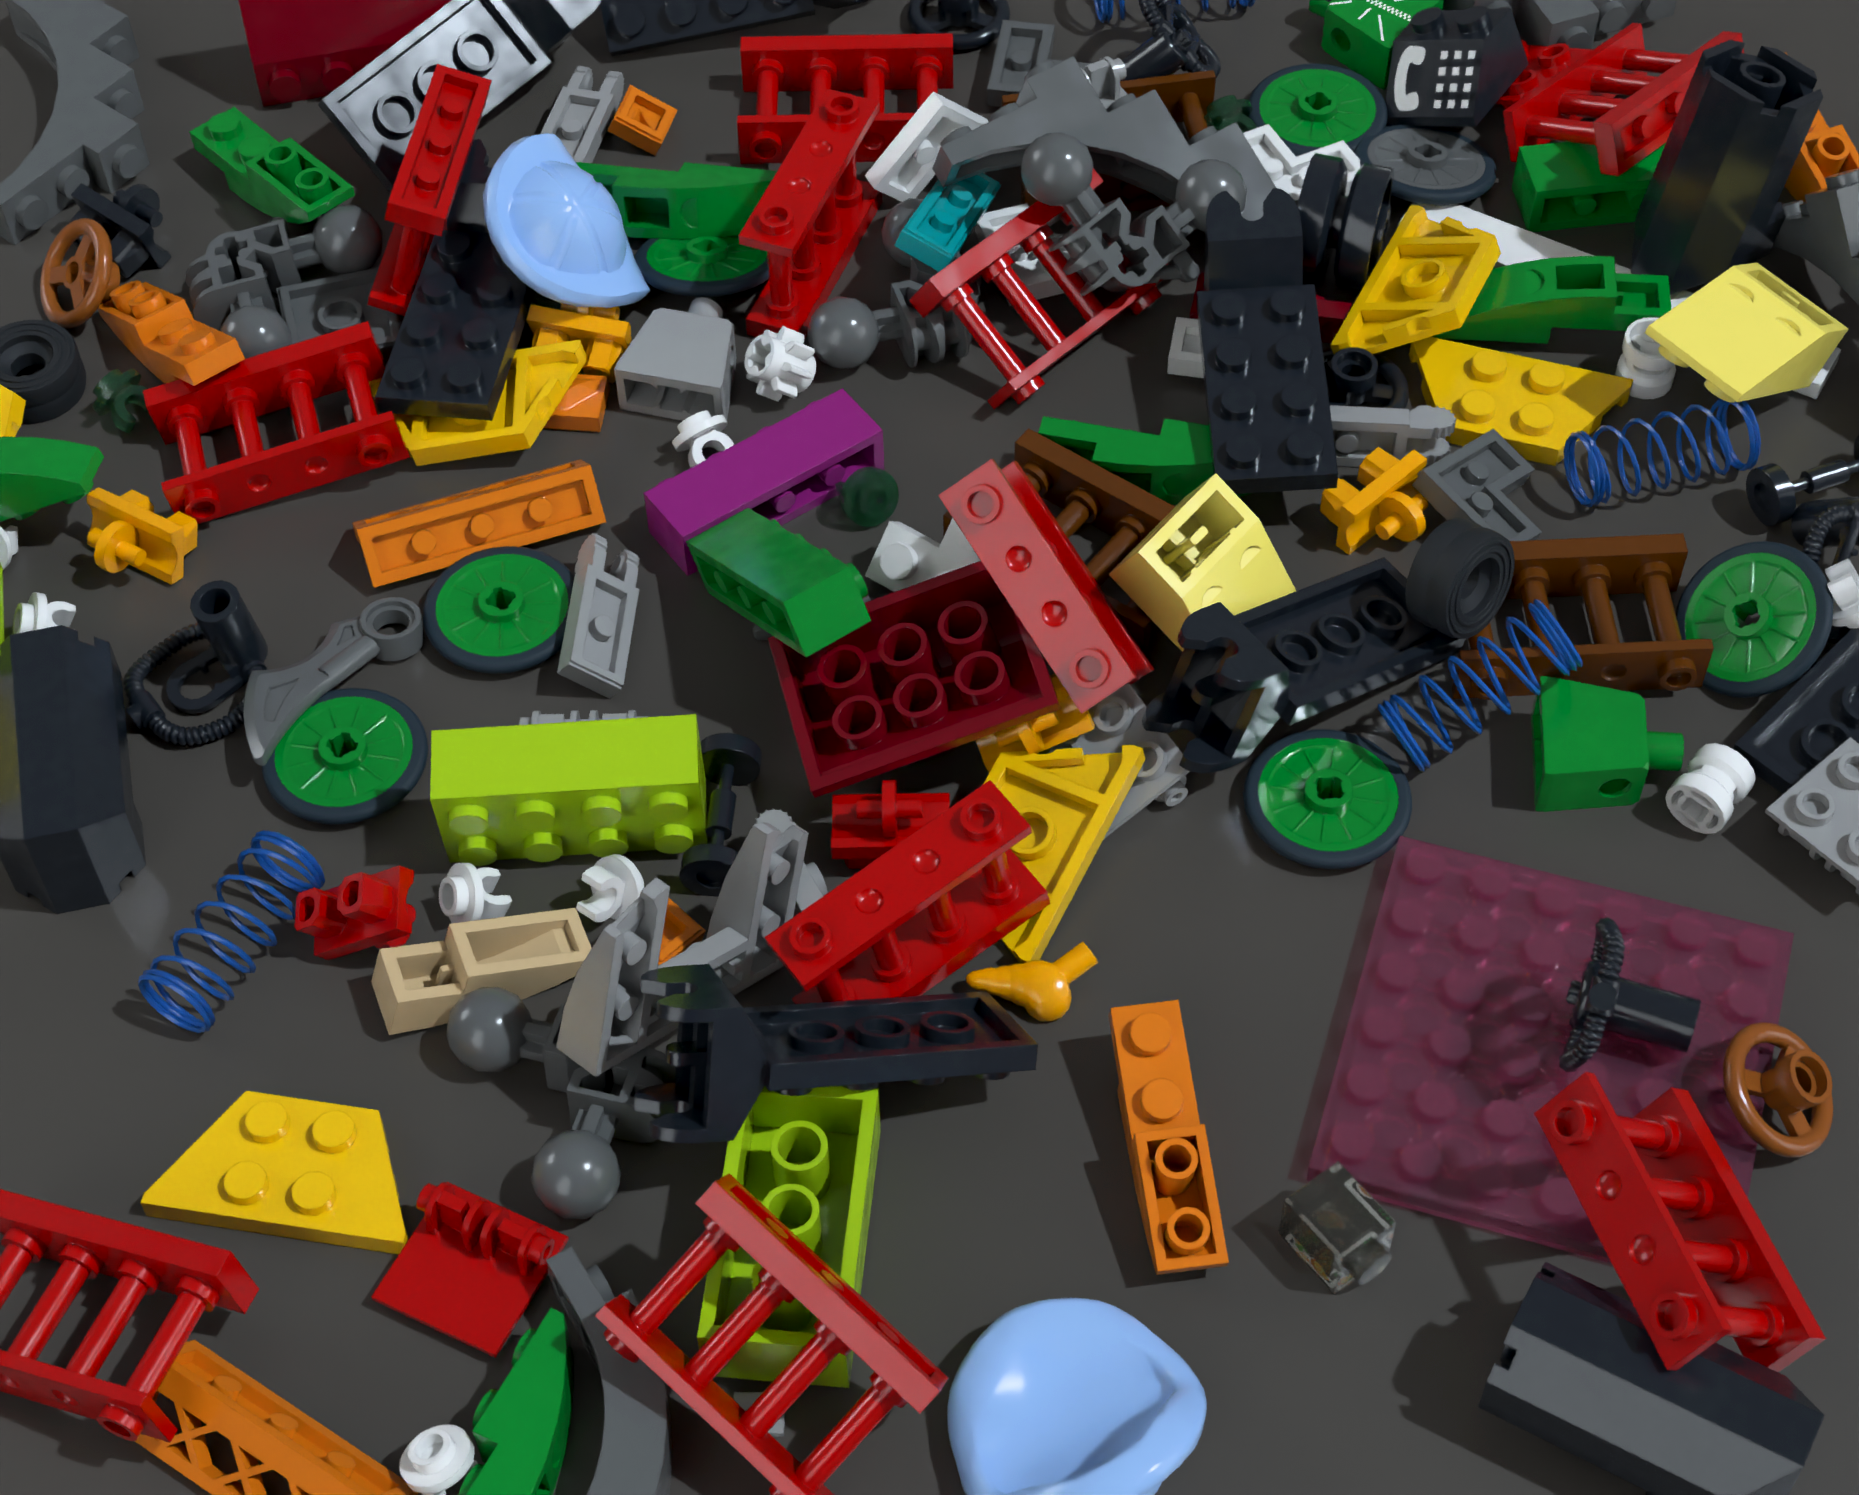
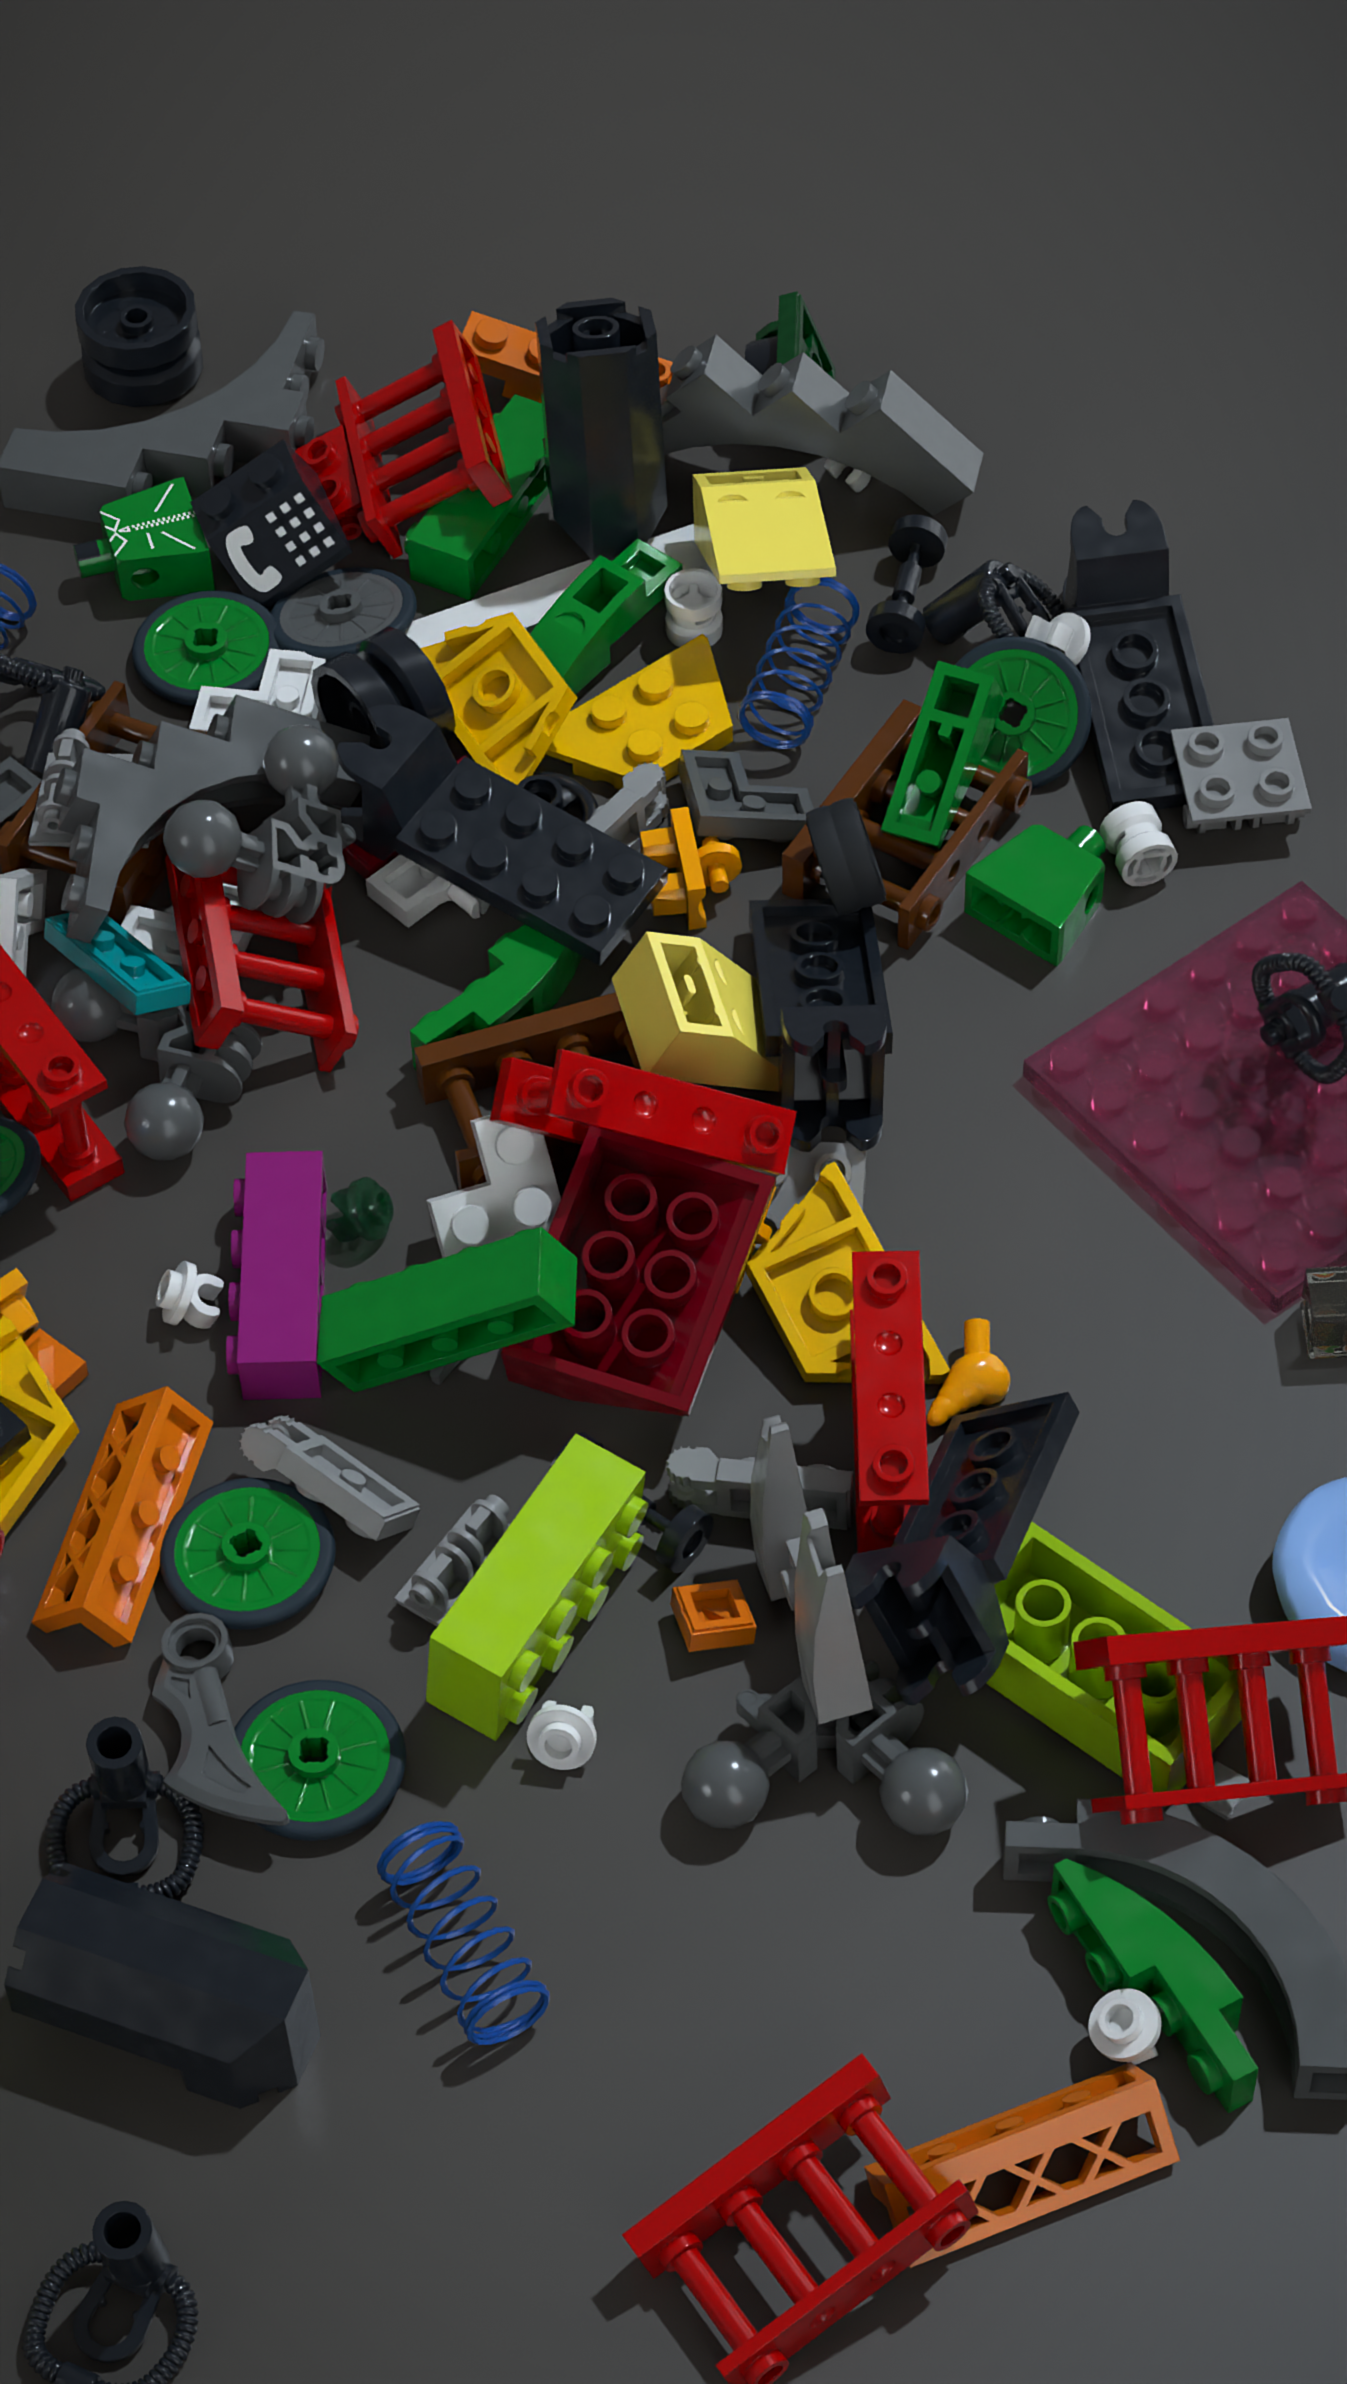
camera: 55 degrees left, 0 degrees up
(288, 1173) = (746, 2015): yellow wing -> none
(358, 913) = (531, 1817): red hips -> none
(469, 1267) = (944, 1922): red hinge -> none
(515, 952) = (647, 1766): tan slope -> none
(614, 888) = (642, 1621): white plate -> none
(679, 363) = (86, 1261): light grey torso -> none
(780, 363) = (172, 1183): white gear -> none
(875, 823) = (748, 1386): red hips -> none
(1166, 1139) = (1193, 1381): orange slope -> none
(1228, 111) = (162, 706): clear green plate -> none
(1341, 832) = (983, 1080): green wheel -> none
(1567, 660) = (973, 843): blue piece -> none
(1649, 585) = (943, 753): none -> green slope

